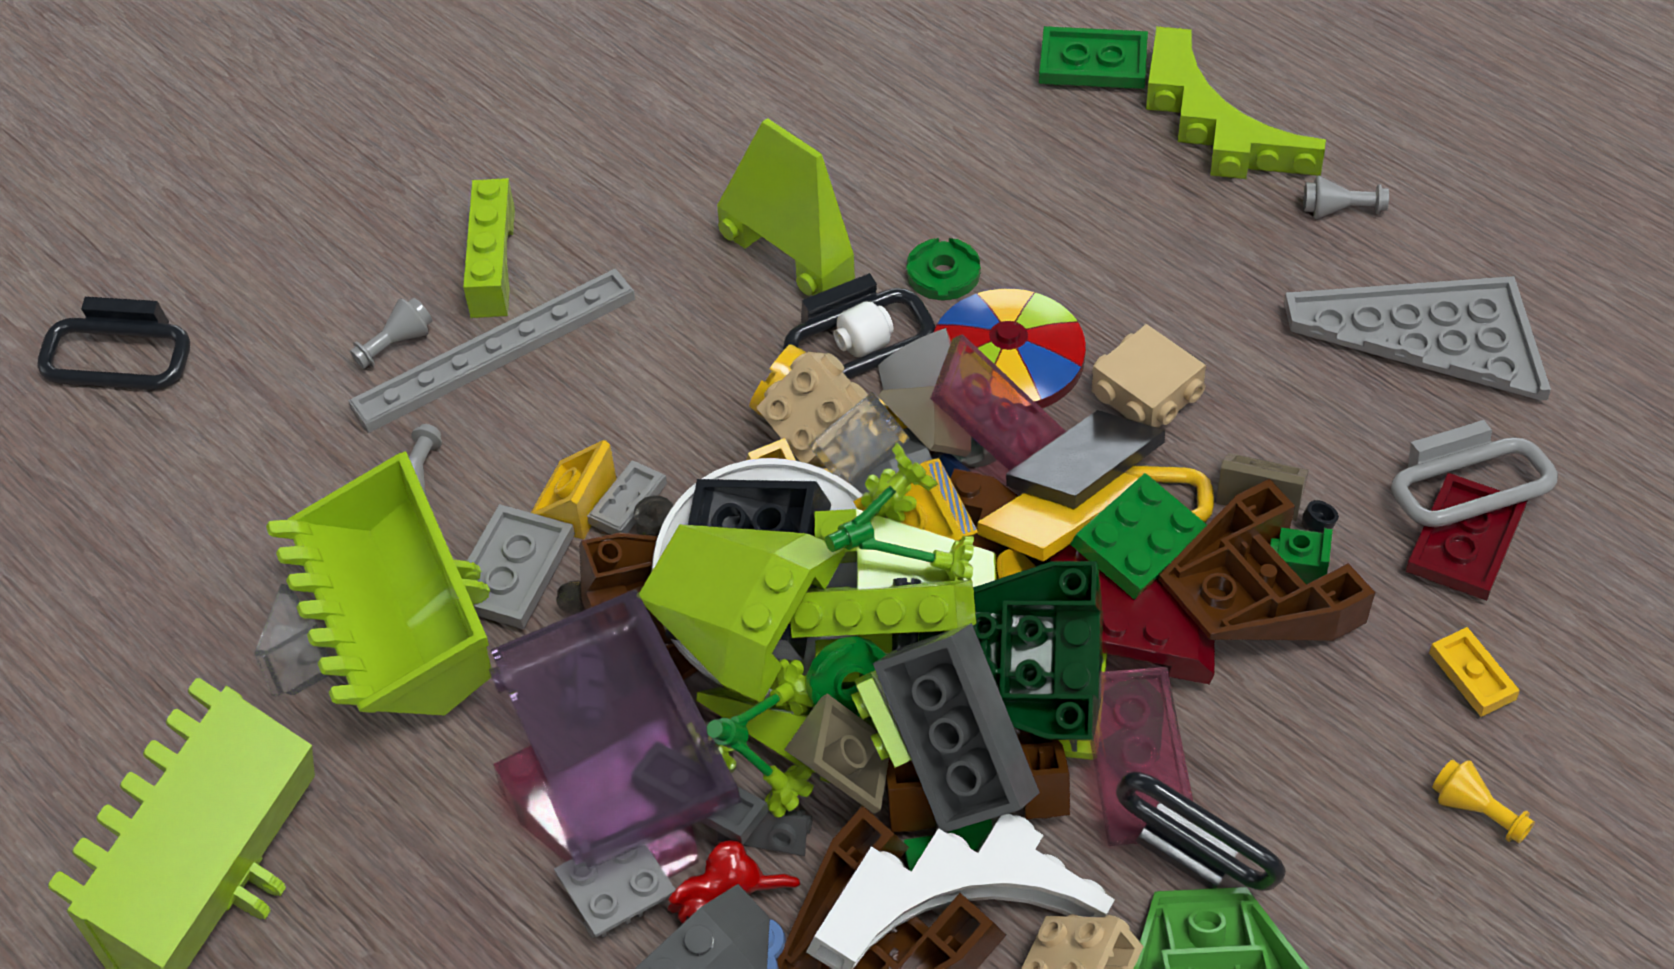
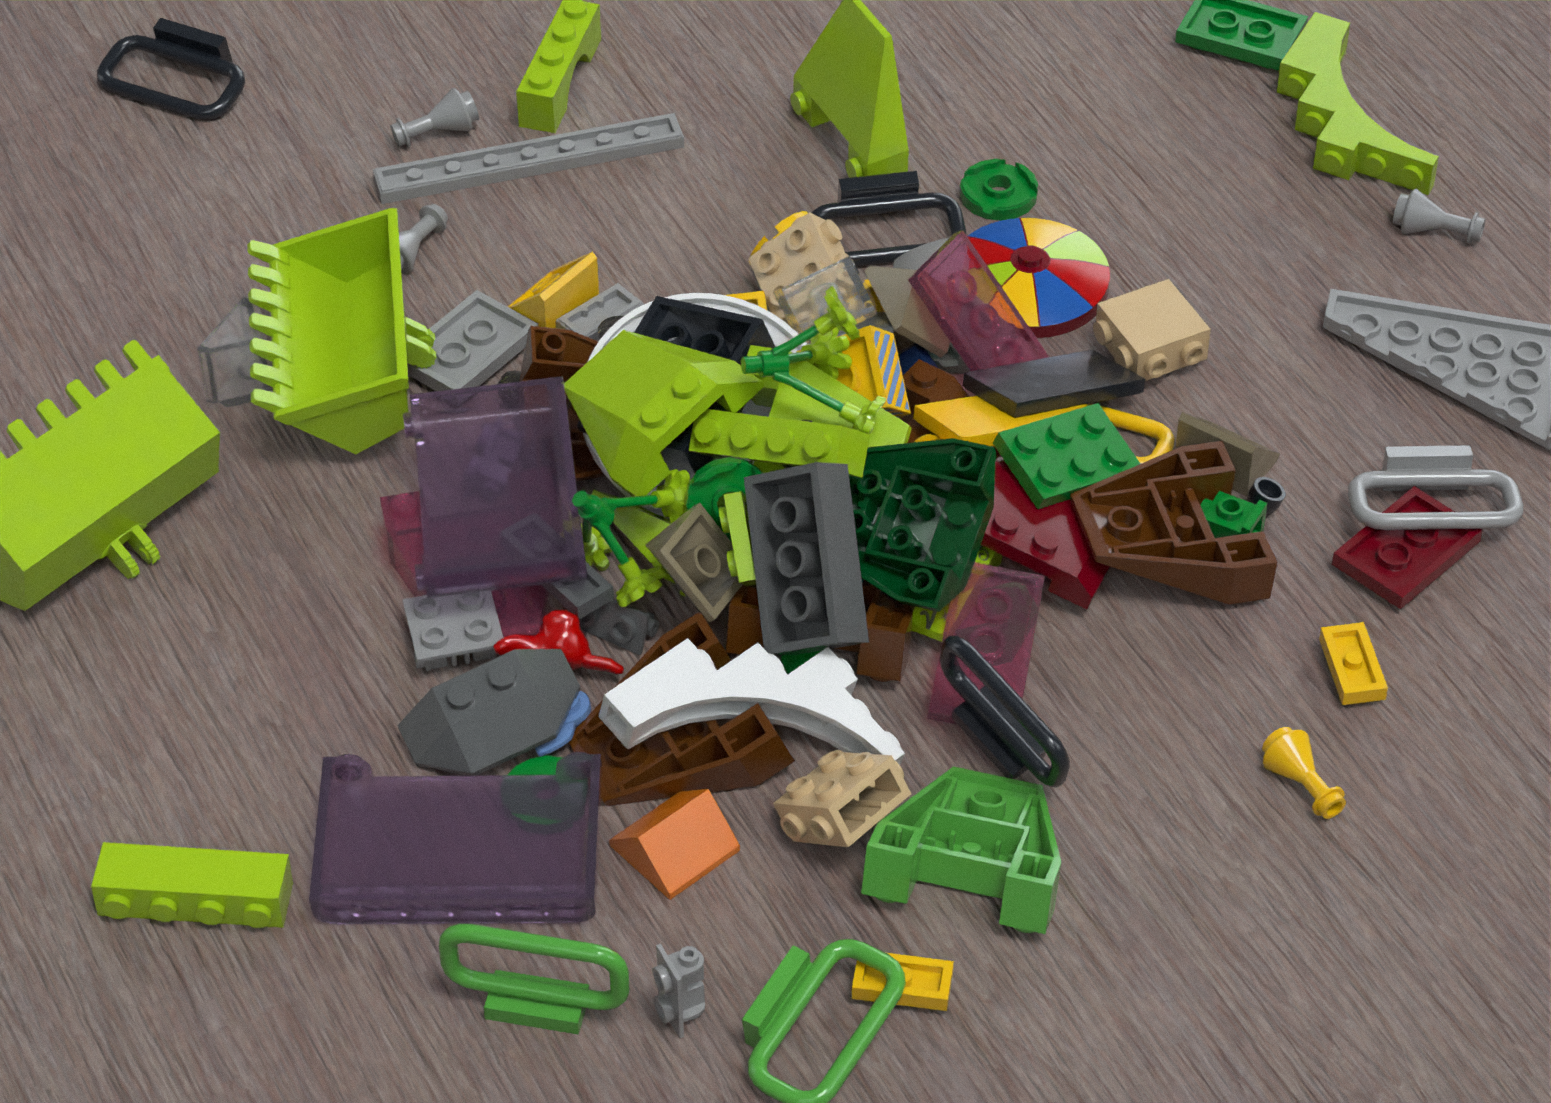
camera: 15 degrees right, 5 degrees down
(863, 329) = (890, 221): white head -> none

